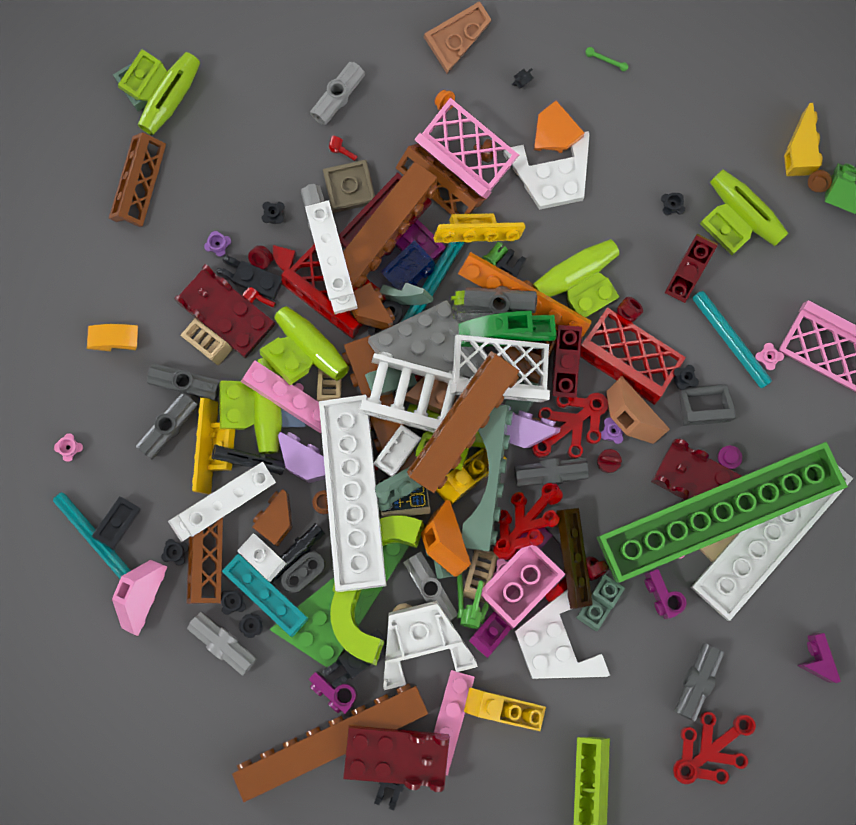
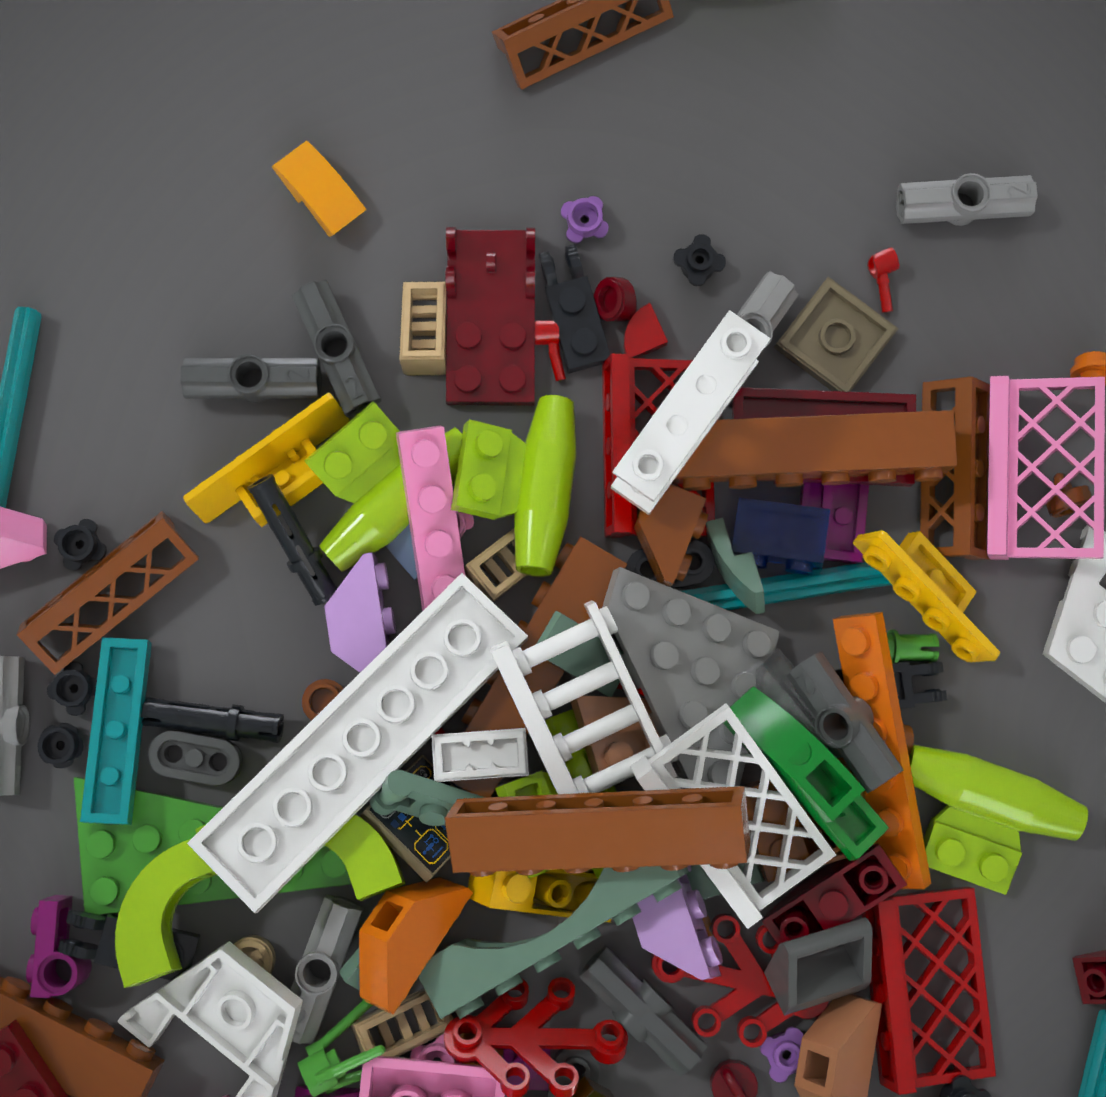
camera: 45 degrees right, 5 degrees up
(61, 447) = (101, 254): bright pink plate -> none
(116, 523) = (52, 426): black plate -> none
(221, 502) = (189, 559): white fence -> none
(261, 557) = (168, 679): white plate -> none
(276, 519) = (237, 654): dark orange slope -> none
(459, 298) = (799, 650): lime plate -> none
(593, 388) = (821, 966): none -> dark grey tile
(631, 308) = (1004, 927): dark red tile -> none

